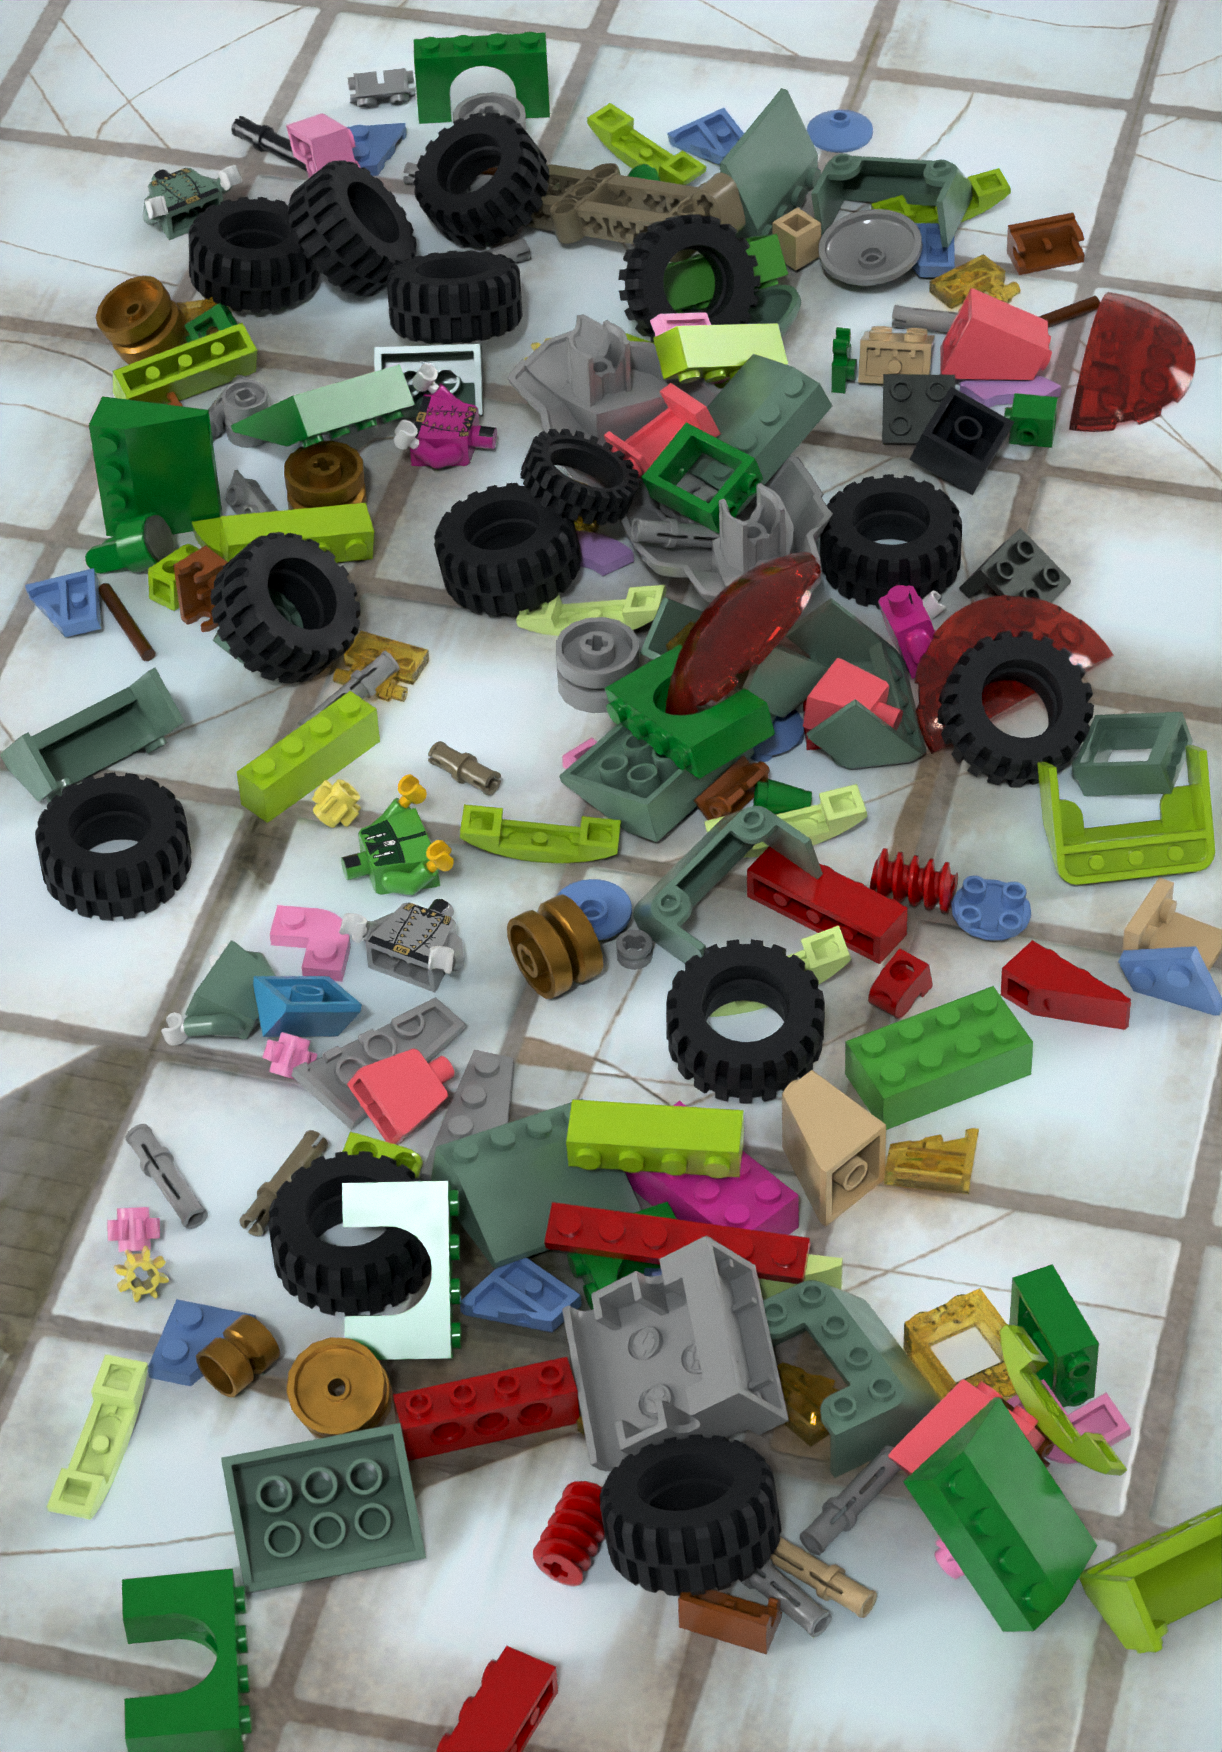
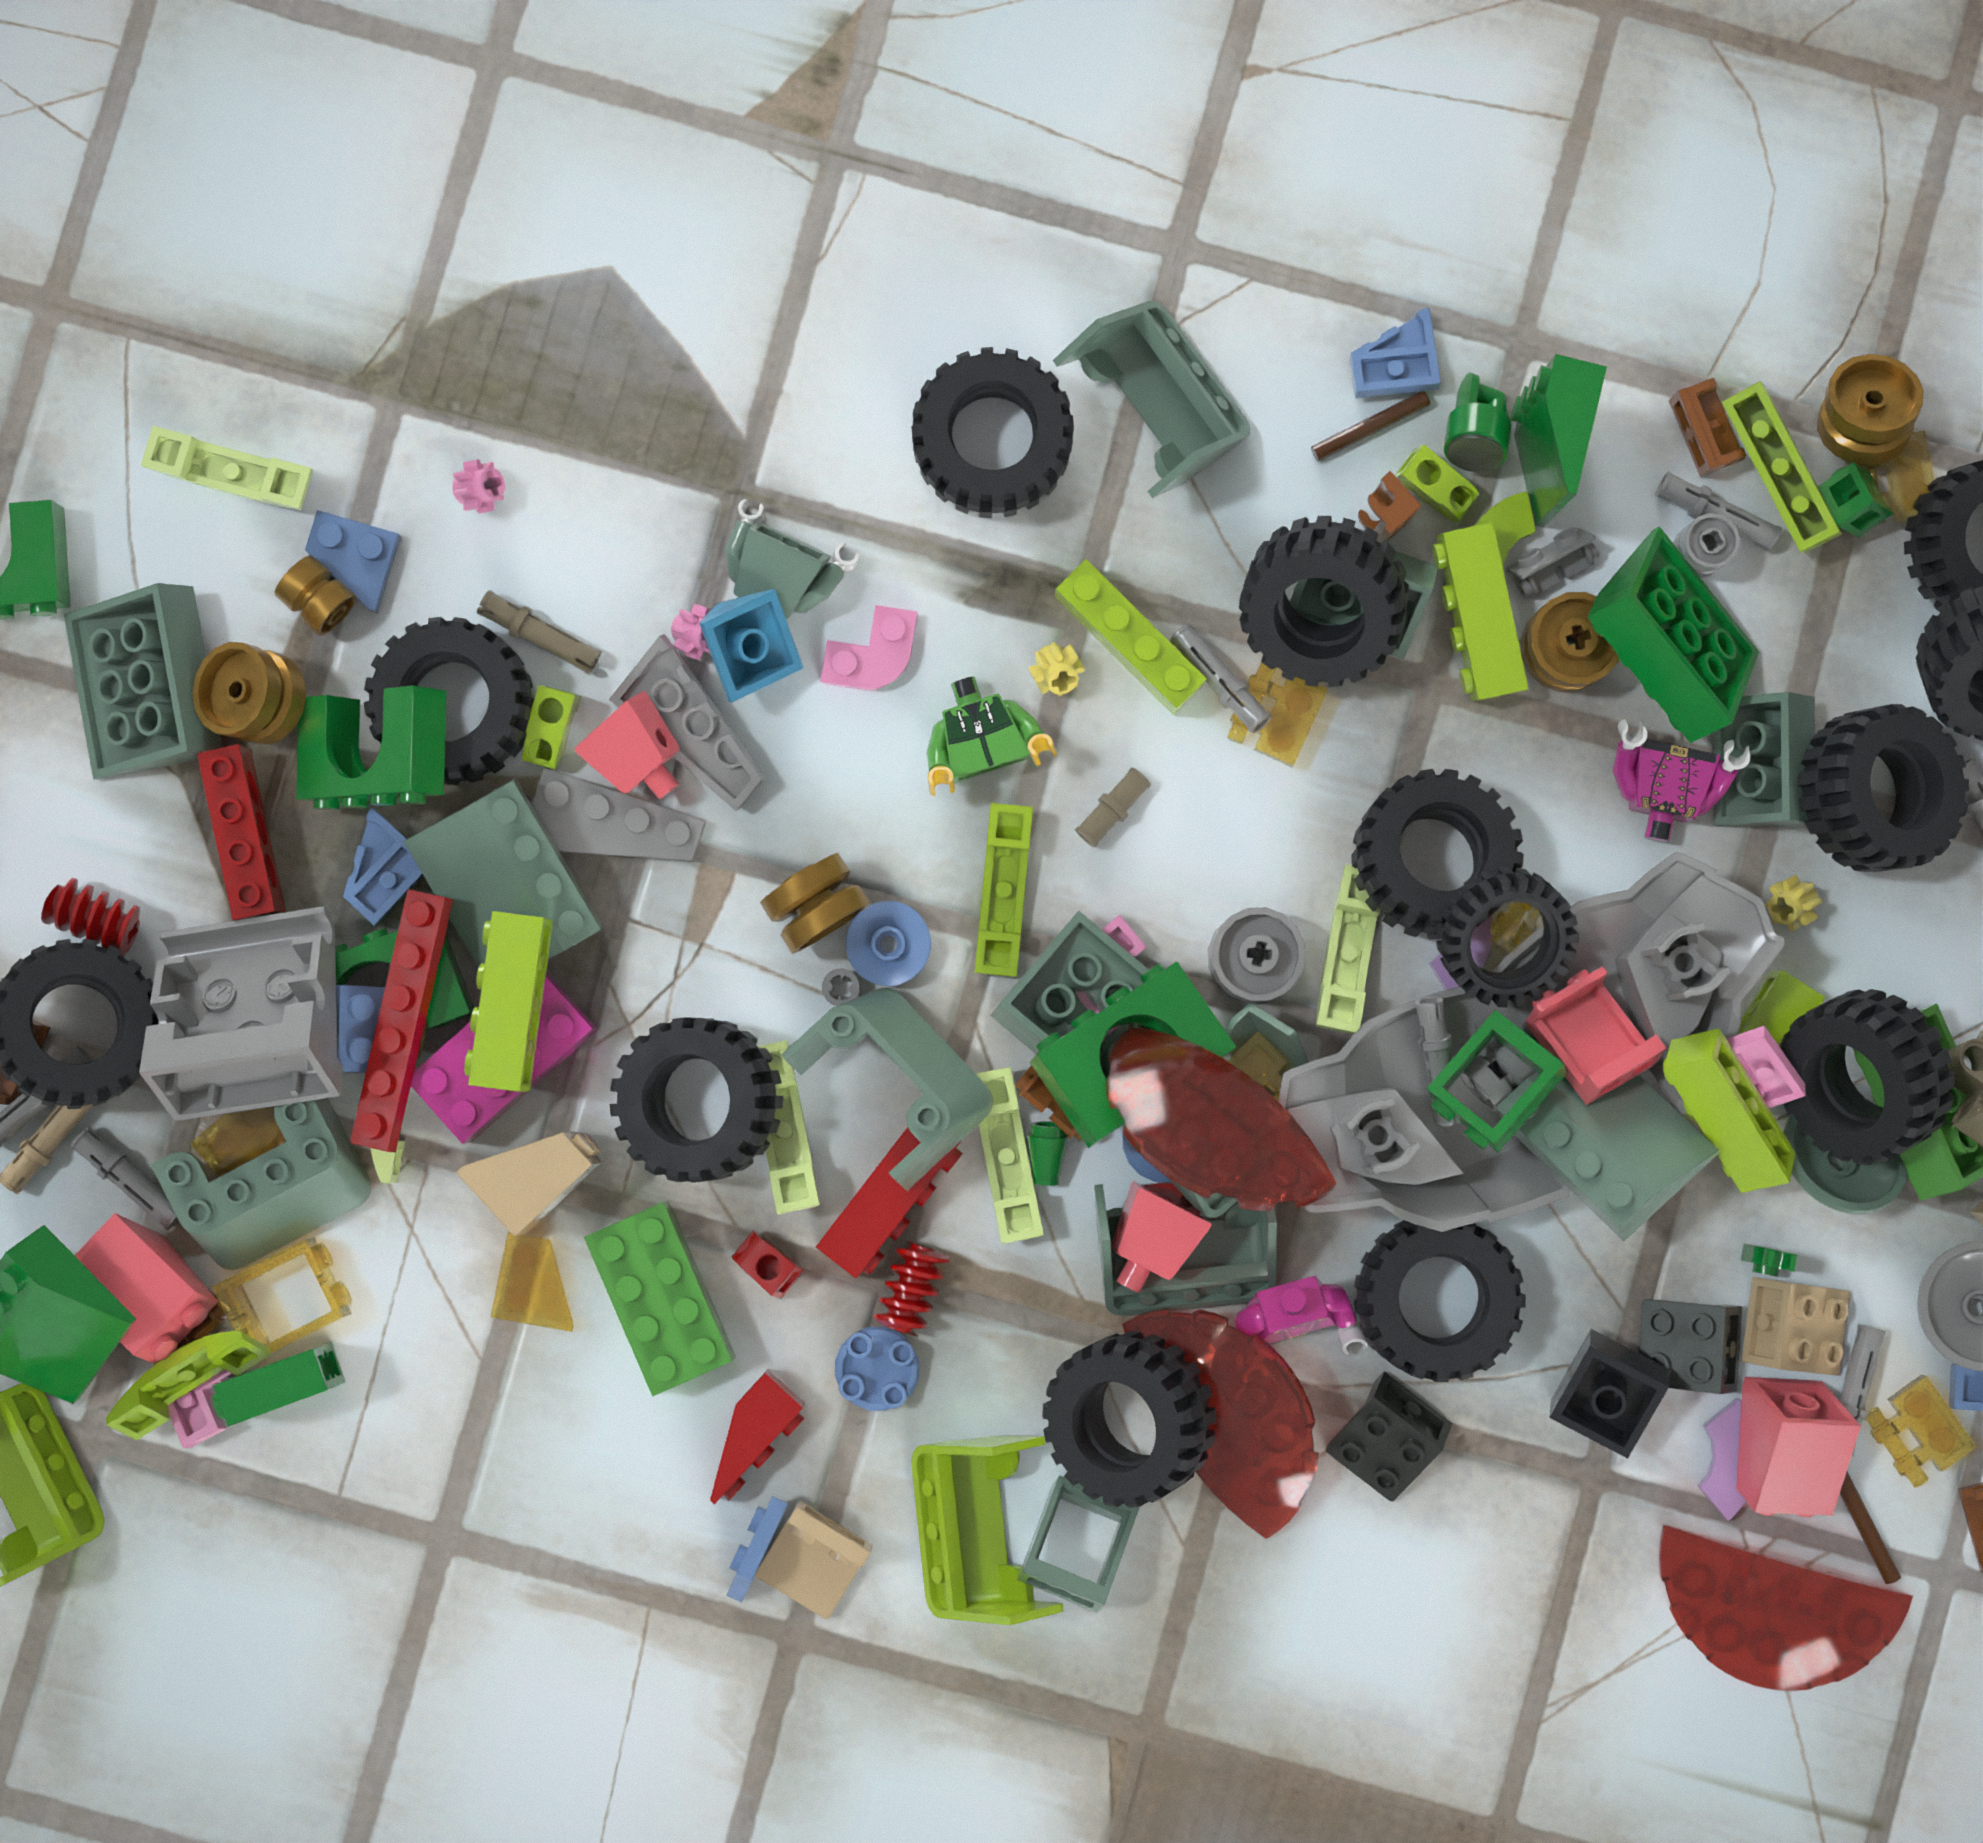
camera: 85 degrees right, 40 degrees up
(147, 1264) = (422, 497): light yellow gear -> none
(166, 1176) = (555, 514): light grey pin -> none
(410, 943) = (847, 757): light grey torso -> none
(1033, 420) = (1661, 1479): green brick -> none

